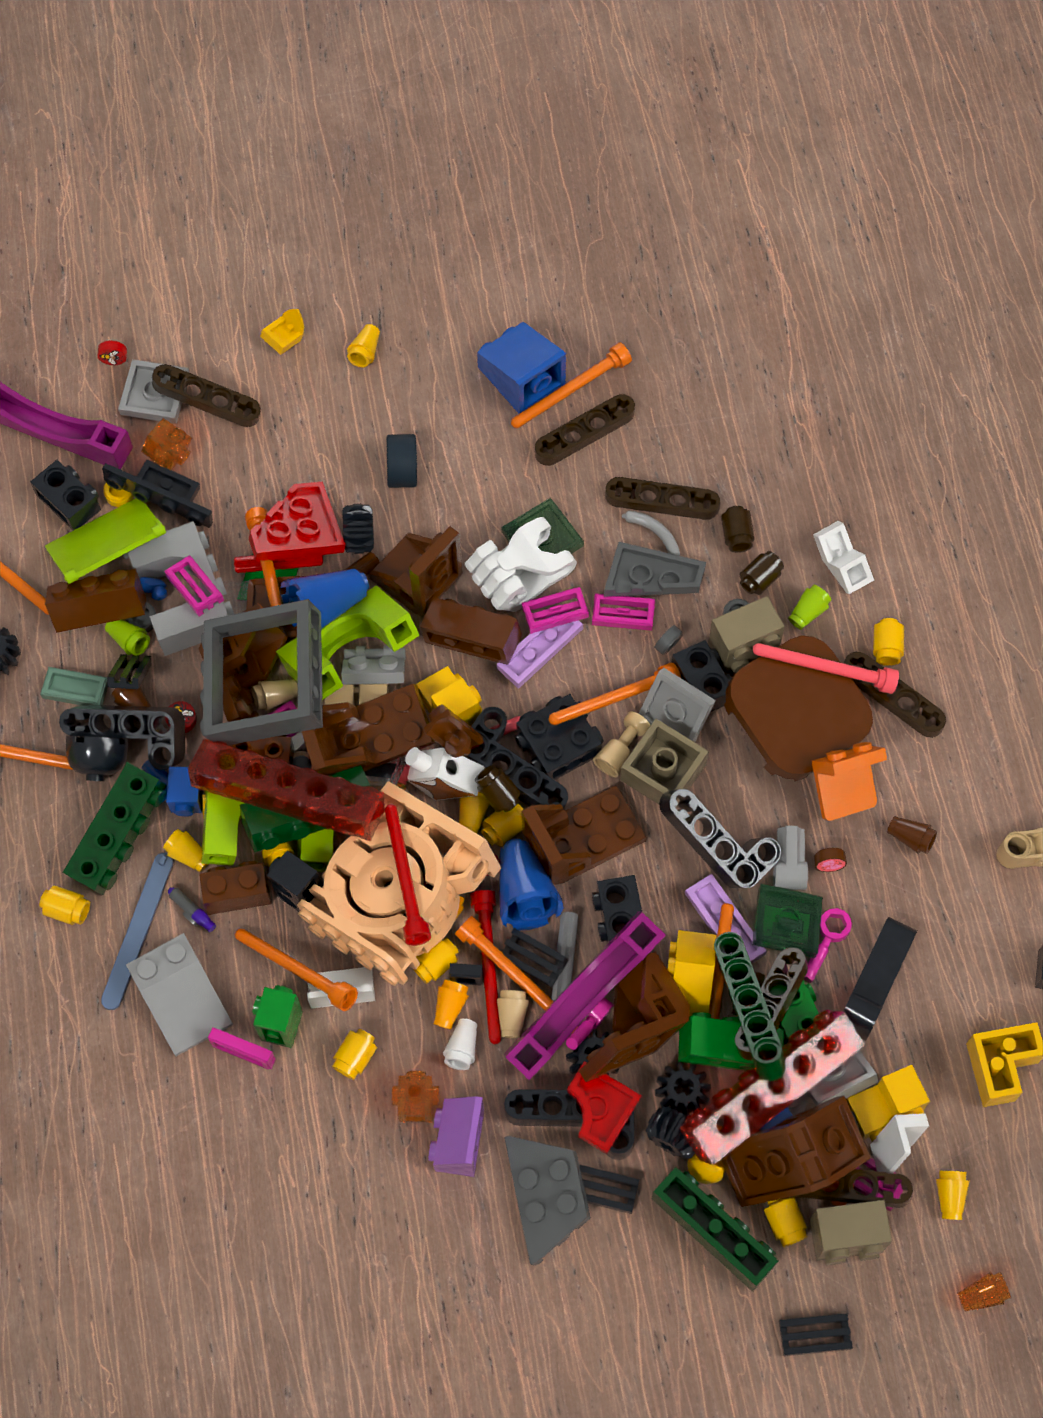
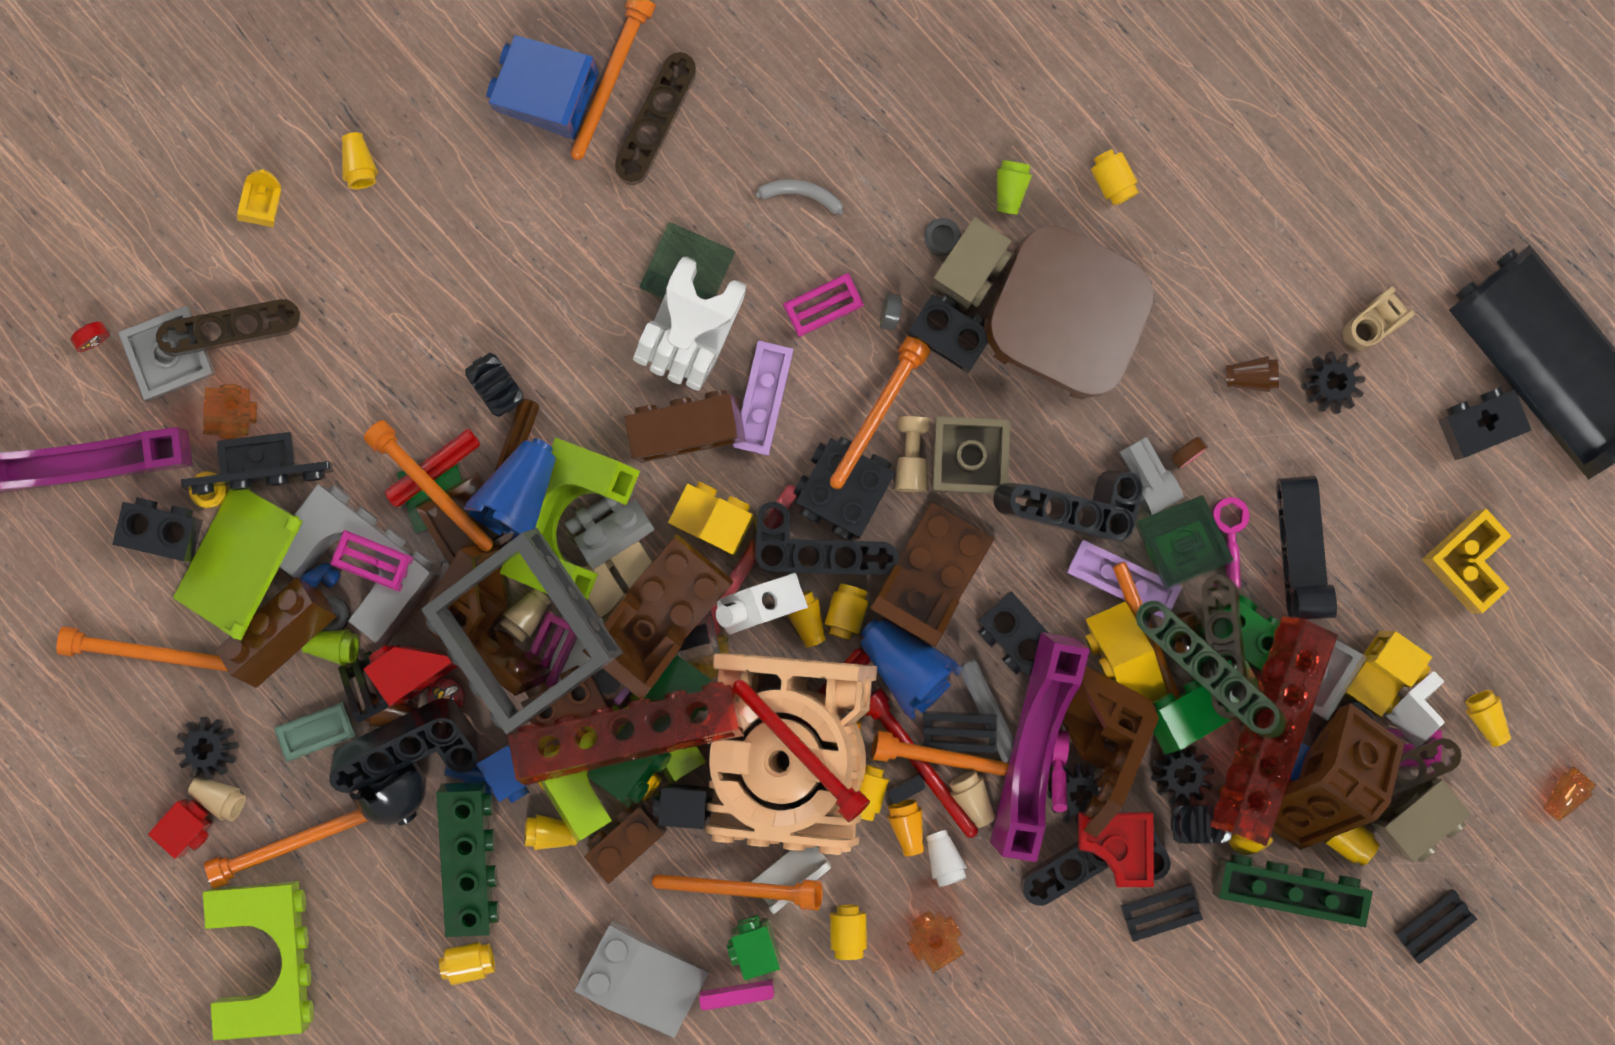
camera: 30 degrees left, 20 degrees up
(137, 931) = (553, 939): sand blue piece -> none
(167, 671) = (406, 671): none -> red slope
(191, 910) = (594, 888): piece -> none
(298, 526) = (431, 421): red plate -> none
(401, 461) = (488, 278): black wheel -> none
(420, 569) = (585, 393): reddish brown bracket -> none
(452, 732) = (749, 567): reddish brown hips -> none
(458, 1135) = (1000, 953): medium lavender slope -> none
(497, 789) = (824, 589): dark brown brick -> none
(547, 1194) = (1114, 951): dark grey wing -> none
(558, 620) = (736, 375): dark pink tile -> none
(652, 572) = (827, 245): dark grey wing -> none
(661, 503) = (788, 155): dark brown beam -> none
(677, 704) = (946, 388): light grey plate -> none
(738, 529) = (887, 141): dark brown brick -> none
(761, 573) = (941, 178): dark brown brick -> none
(842, 560) = (1013, 108): white slope -> none
(846, 780) = (1162, 361): orange bracket -> none
(885, 680) = (1138, 228): coral piece -> none
(890, 701) = (1150, 236): dark brown beam -> none
(977, 865) = (1332, 368): none -> black gear

